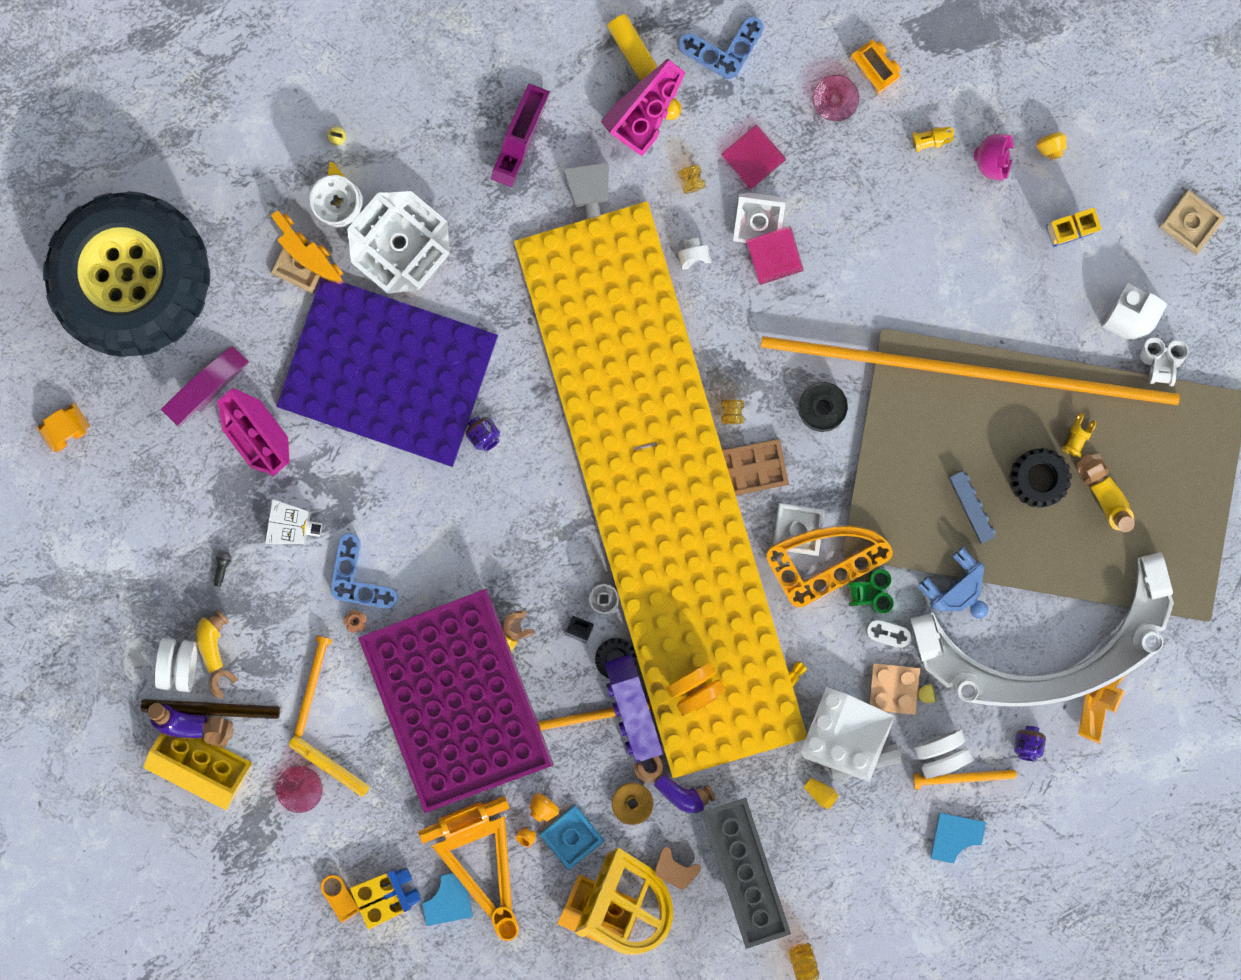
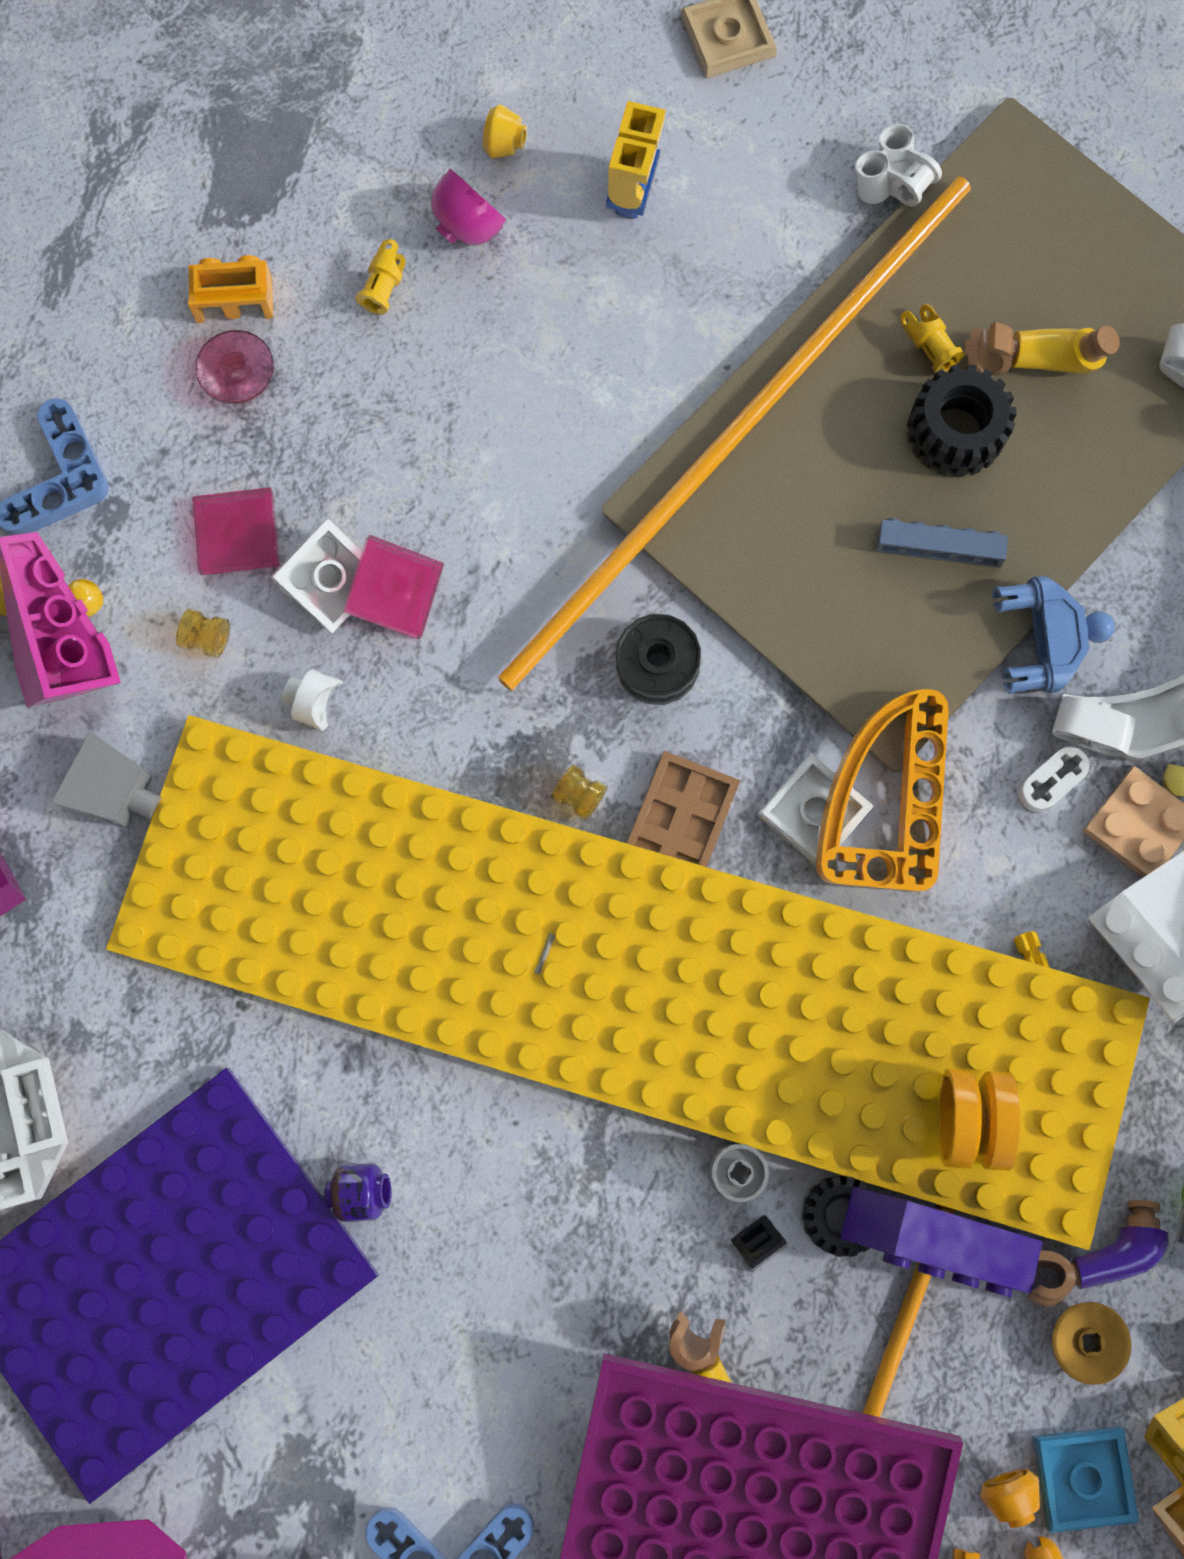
camera: 60 degrees left, 10 degrees down
(870, 592) = (977, 766): green piece -> none
(1134, 313) = (806, 166): white brick -> none

